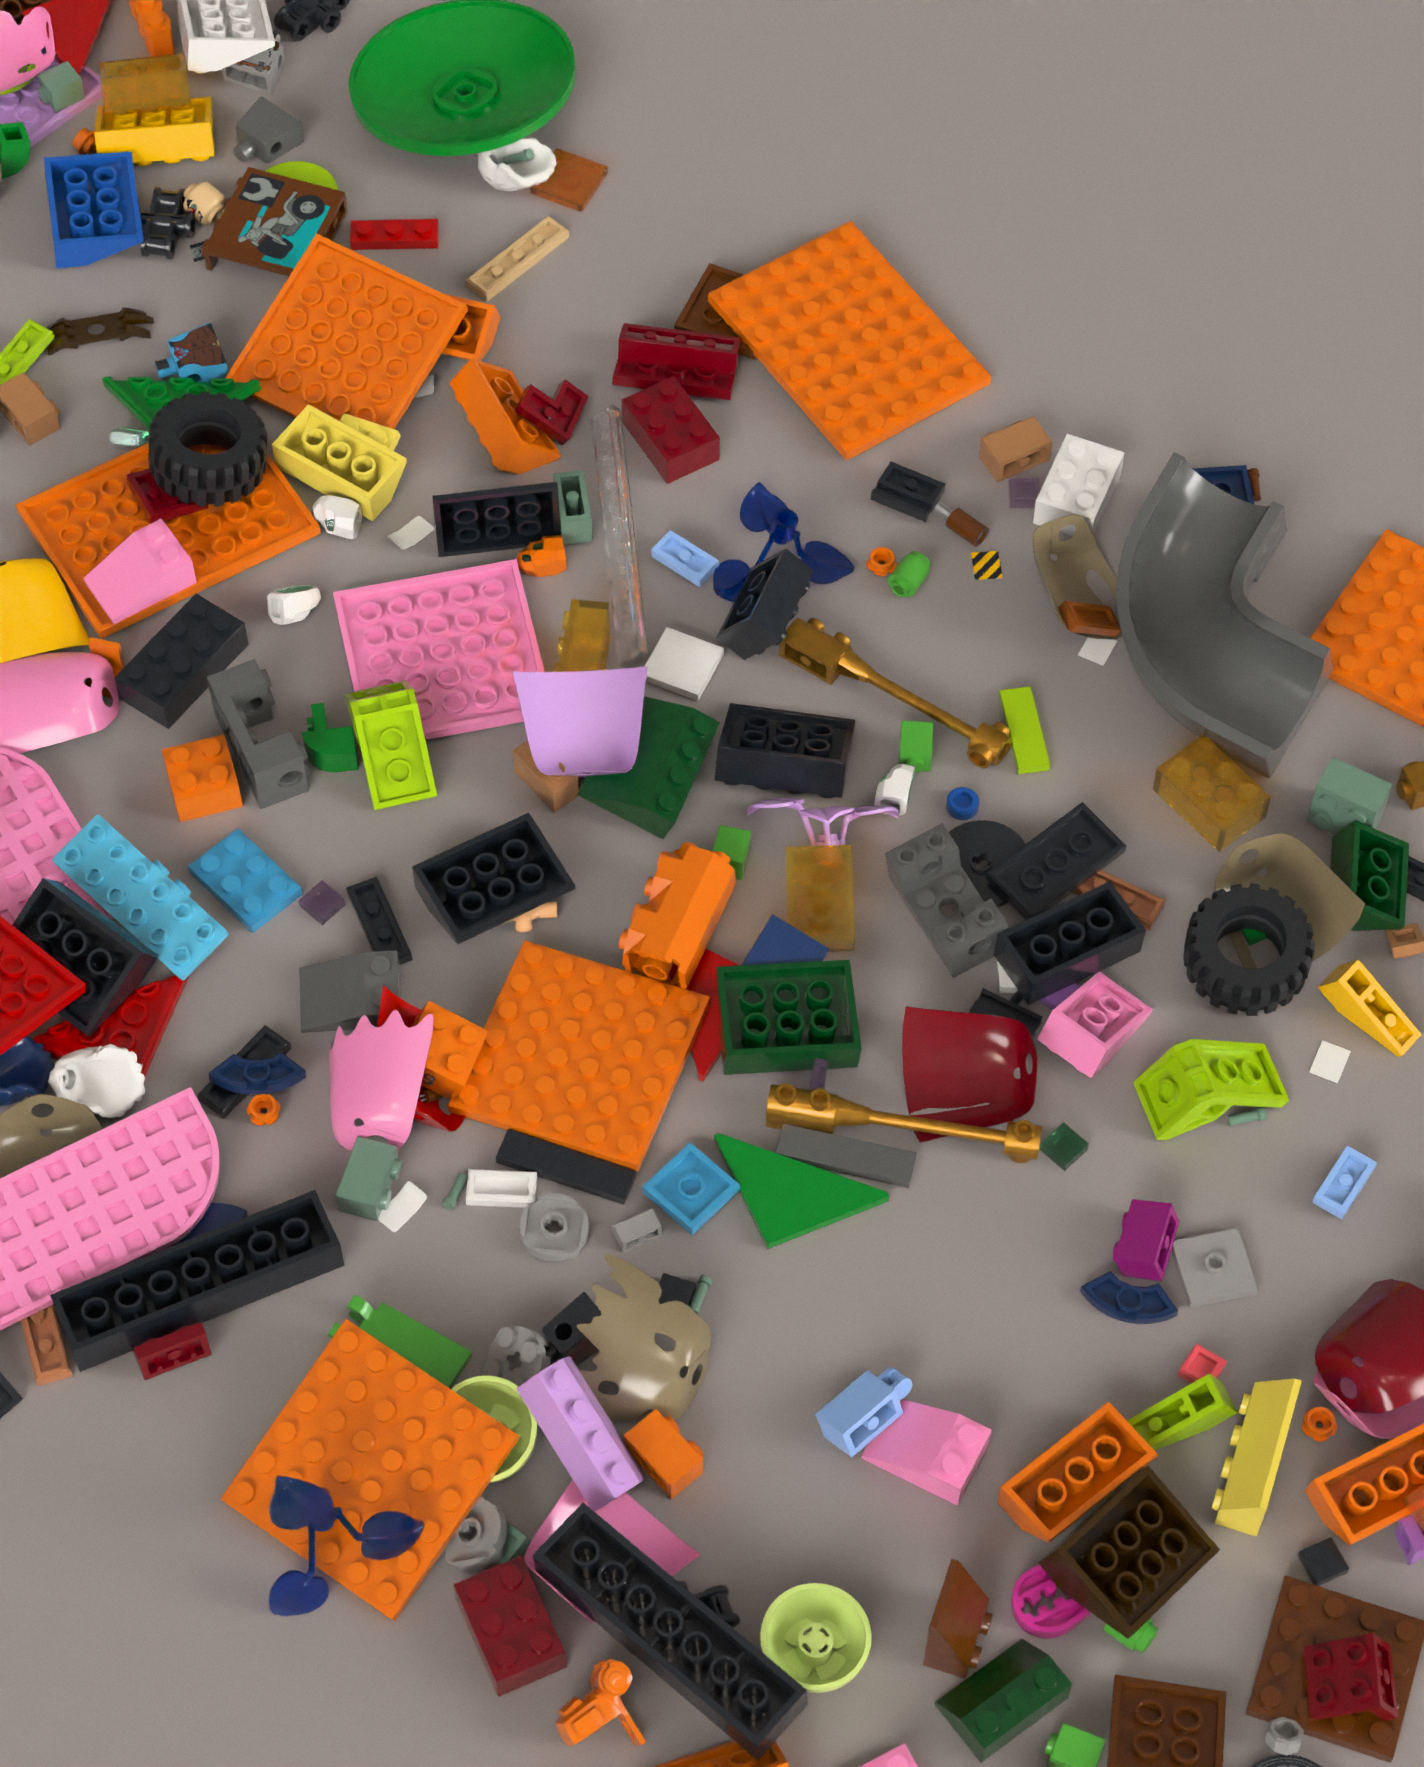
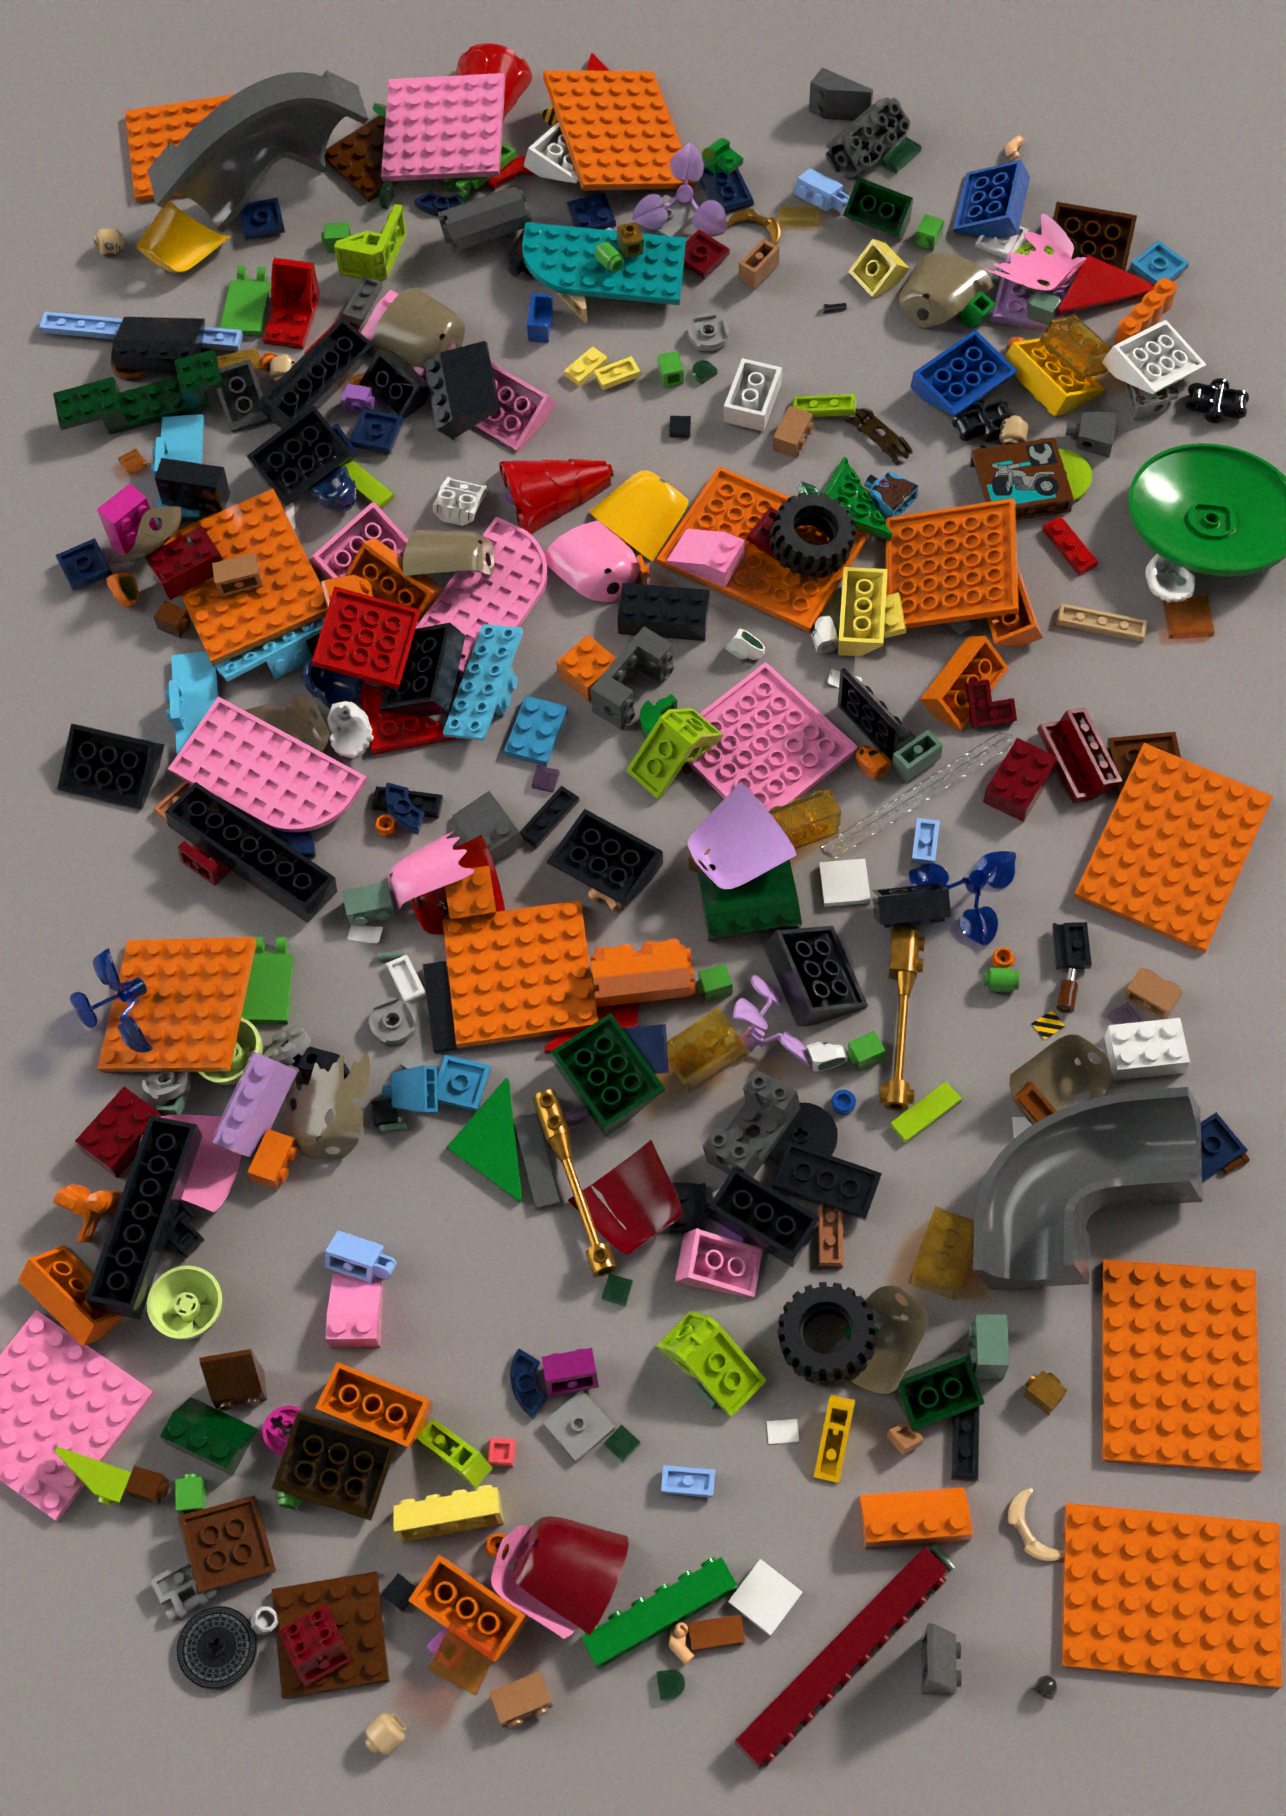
camera: 65 degrees right, 5 degrees up
(673, 1240) = (413, 1089): none -> dark azure torso
(1260, 1232) = (622, 1443): none -> clear green tile

